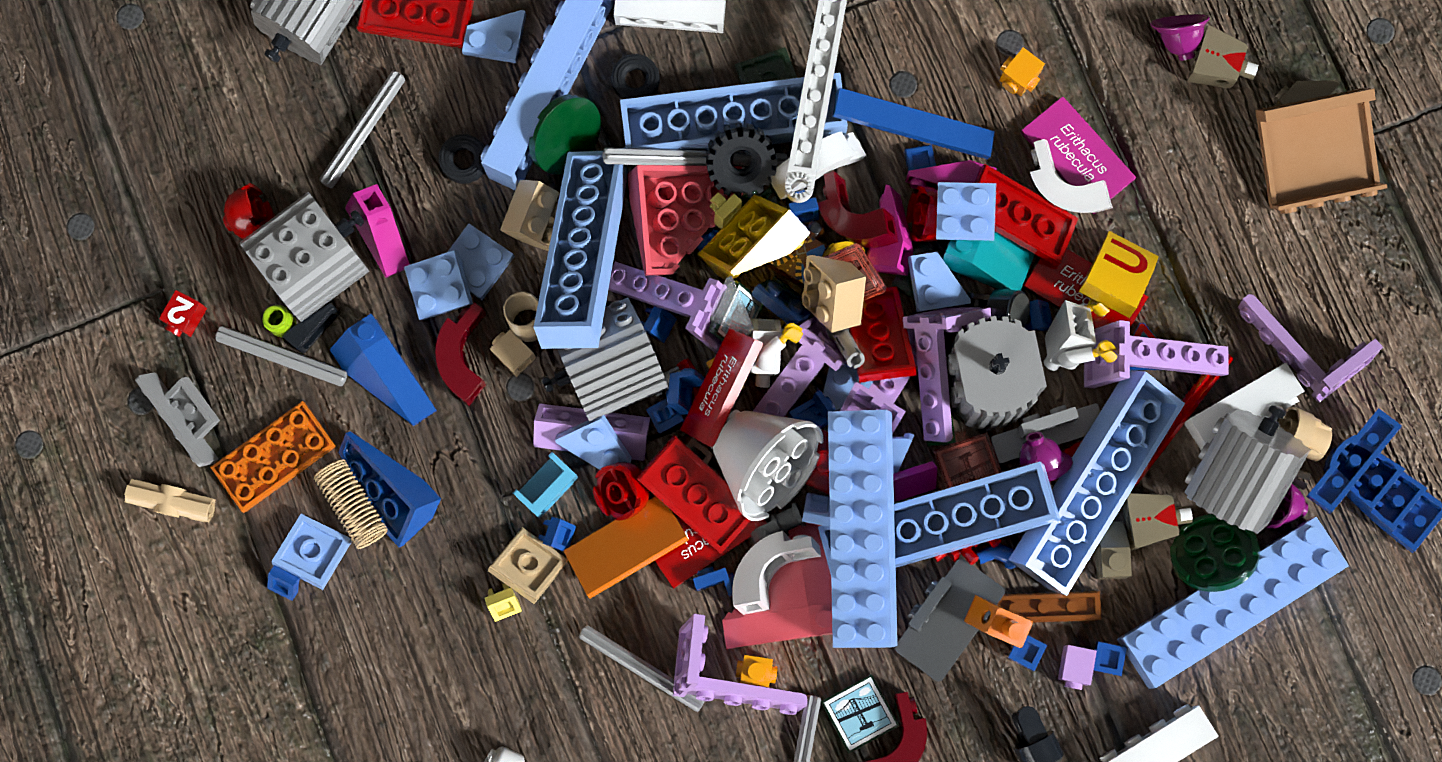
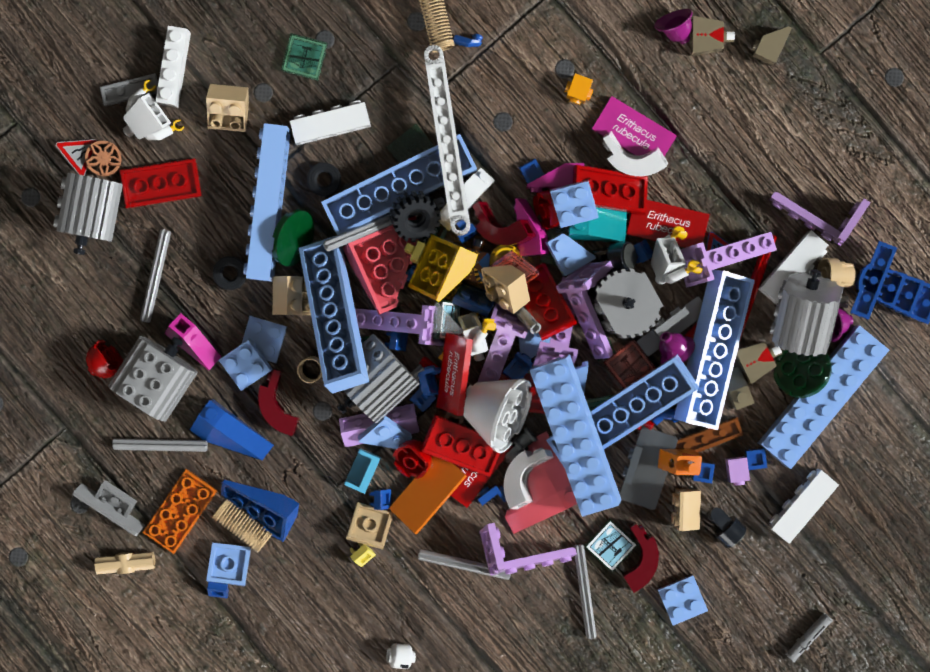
camera: 25 degrees left, 10 degrees up
(182, 314) = (85, 440): red brick -> none
(274, 315) = (145, 424): lime brick -> none
(309, 330) = (170, 426): black slope -> none
(495, 37) = (221, 182): light blue wing -> none
(512, 352) = (309, 392): tan brick -> none
(756, 671) = (537, 543): light orange brick -> none
(817, 509) = (541, 429): light blue tile -> none
(913, 123) = (519, 151): blue tile -> none
(914, 481) = (597, 388): dark pink tile -> none
(986, 696) = (686, 509): none -> tan slope
(1119, 274) = (686, 206): yellow slope -> none
(1319, 150) = (791, 78): medium nougat panel -> none

